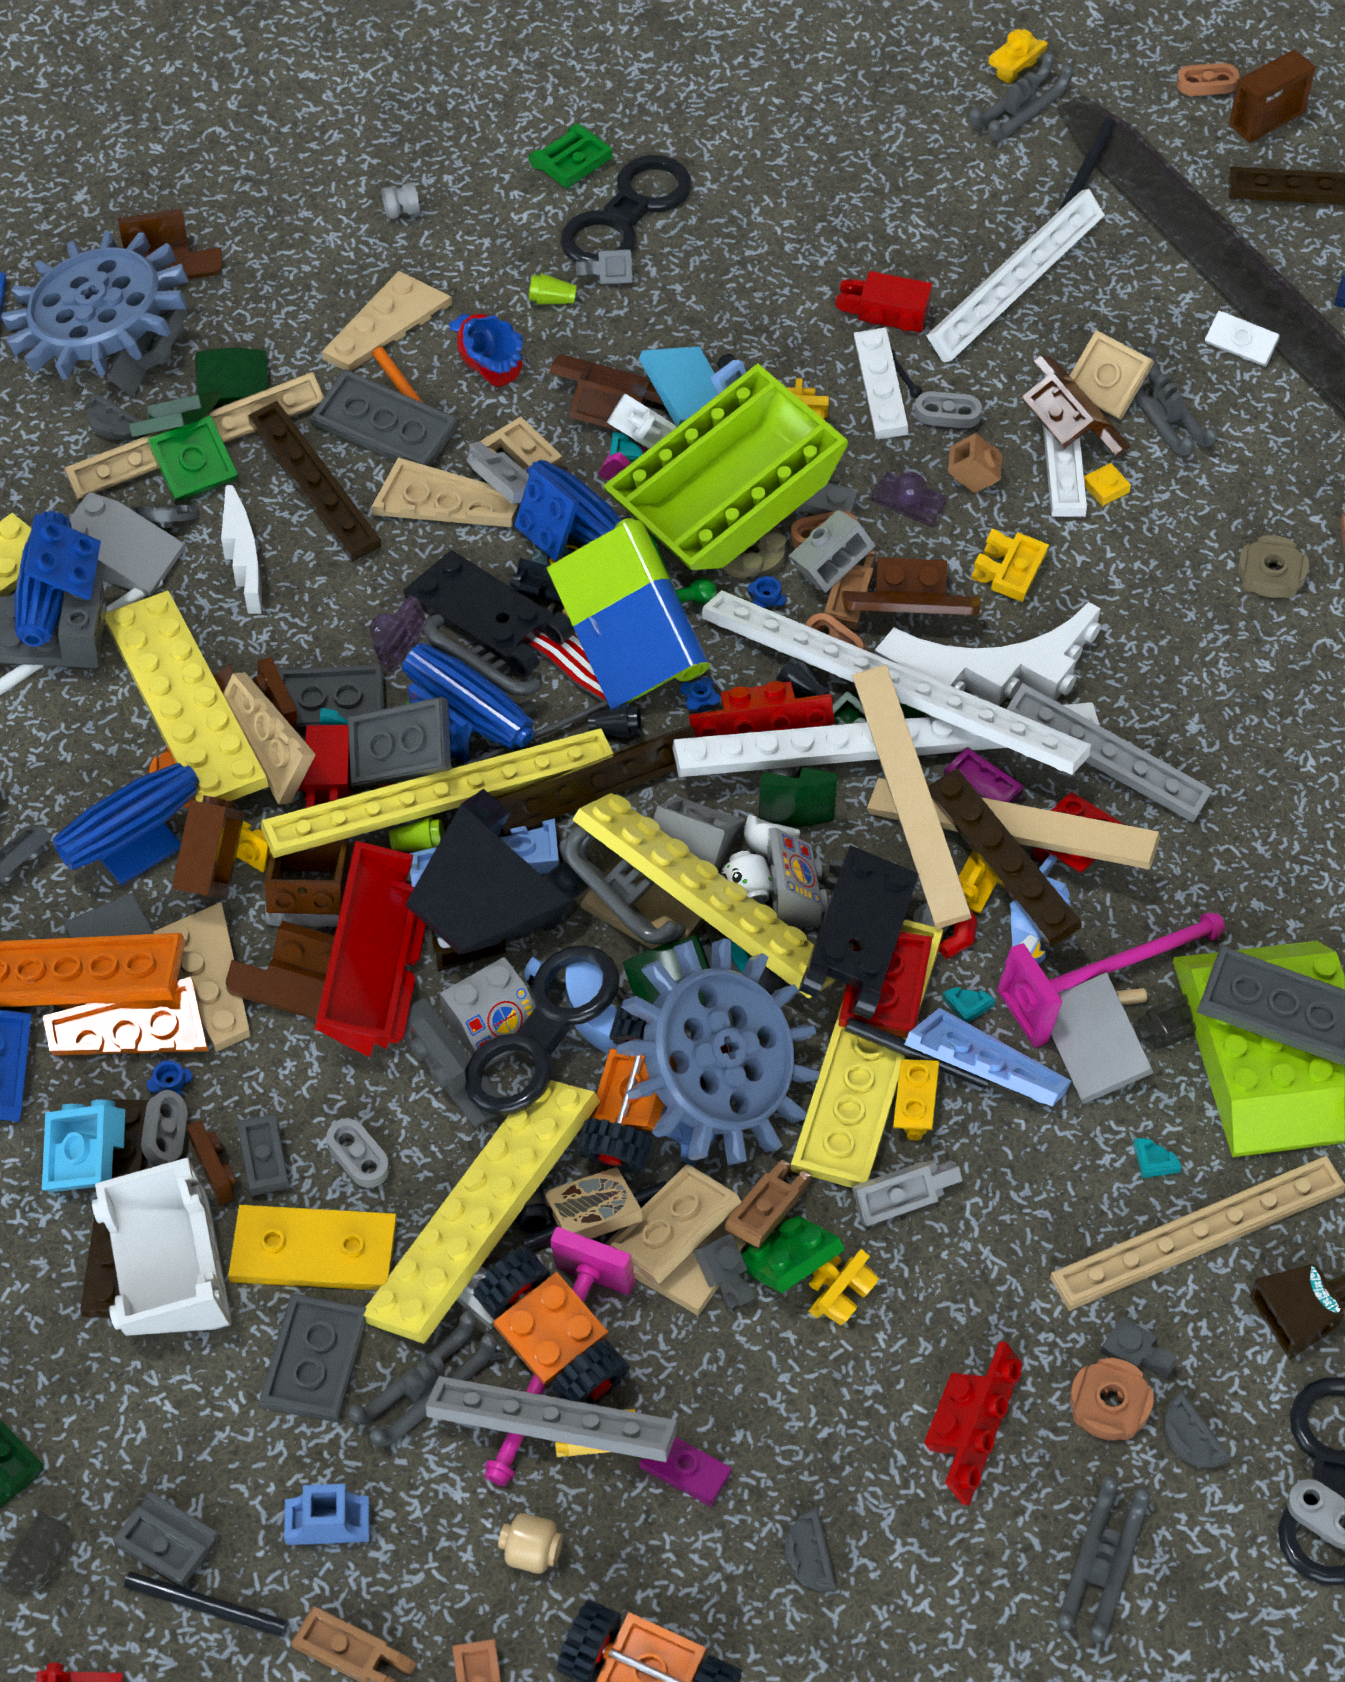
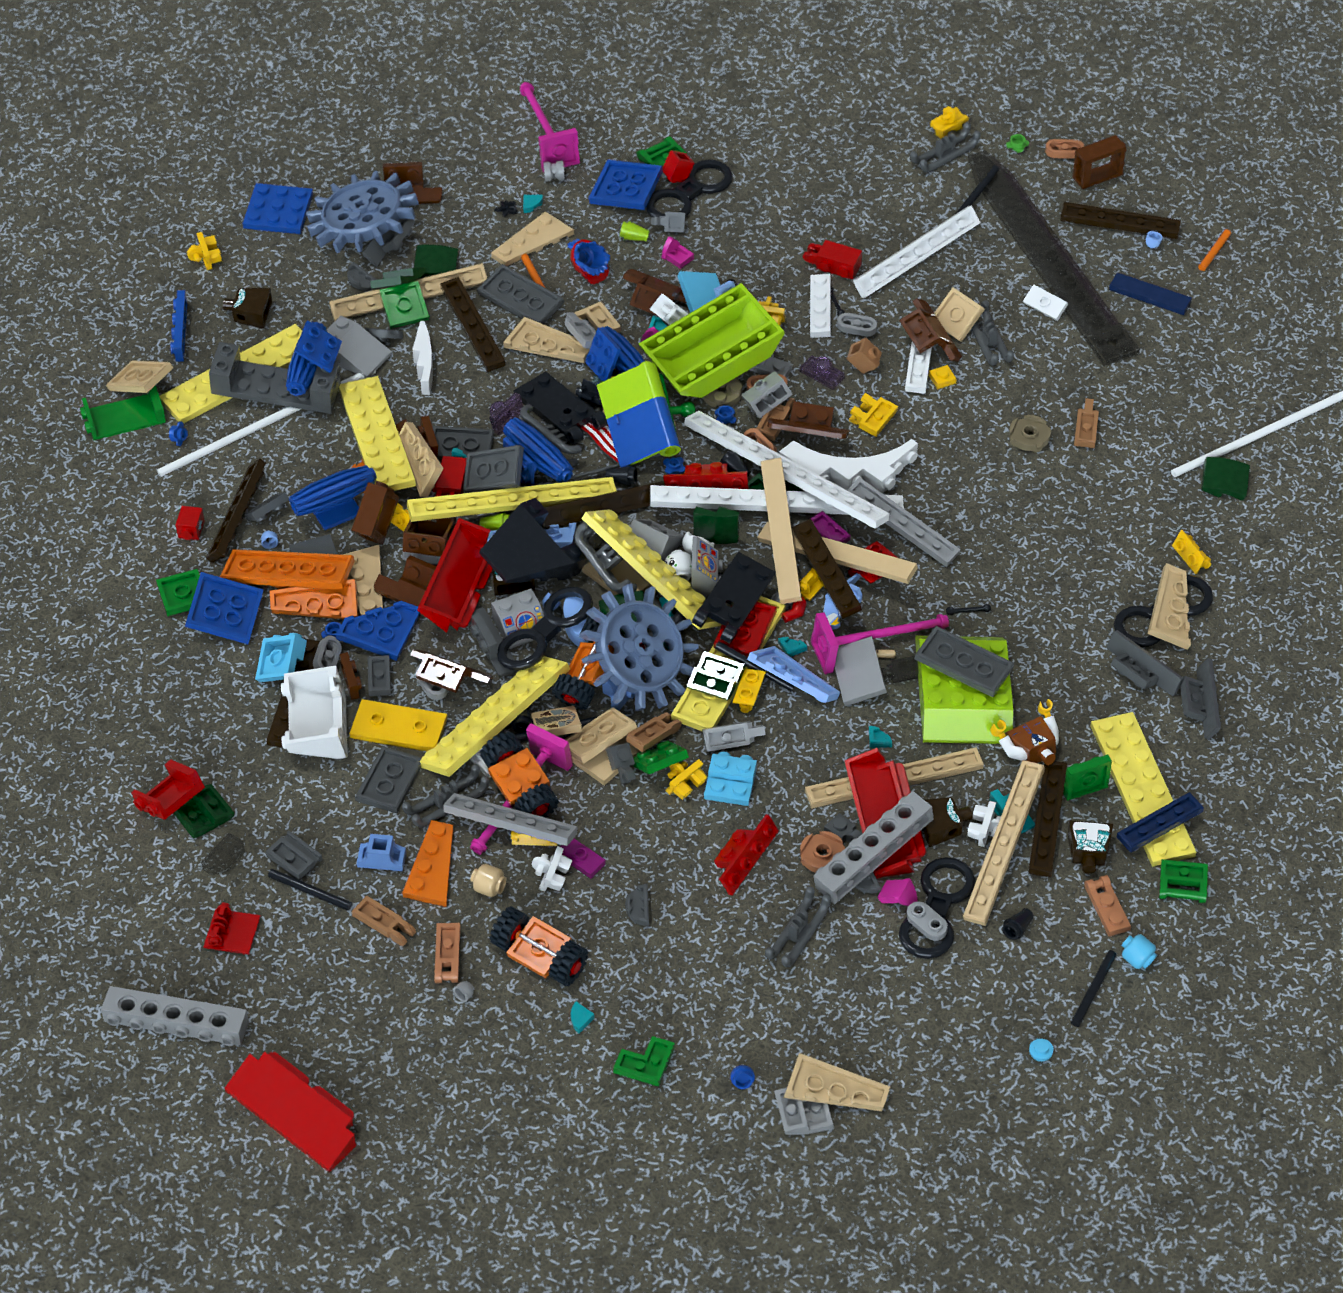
camera: 10 degrees right, 5 degrees down
(33, 913) = (273, 539): none -> light blue hinge
(252, 1065) = (381, 629): none -> blue plate
(334, 271) = (507, 207): none -> black plant
(373, 257) = (531, 202): none -> teal tile
(381, 1133) = (445, 672): none -> plate
(395, 159) = (553, 146): none -> dark pink tile
(420, 1535) = (431, 869): none -> orange wing
(522, 212) = (625, 184): none -> blue plate
(602, 173) = (677, 166): none -> red brick
(628, 319) = (676, 253): none -> dark pink tile
(633, 1501) = (556, 862): none -> white hips
(855, 1081) = (716, 676): none -> slope
(919, 1275) = (730, 778): none -> medium azure plate
(1131, 77) = (1017, 143): none -> bright green plate
(1155, 1469) = (870, 858): none -> light grey brick
(1194, 1291) = (876, 789): none -> red slope
(1219, 902) = (950, 610): none -> black hinge
(1262, 1462) = (898, 892): none -> dark pink tile

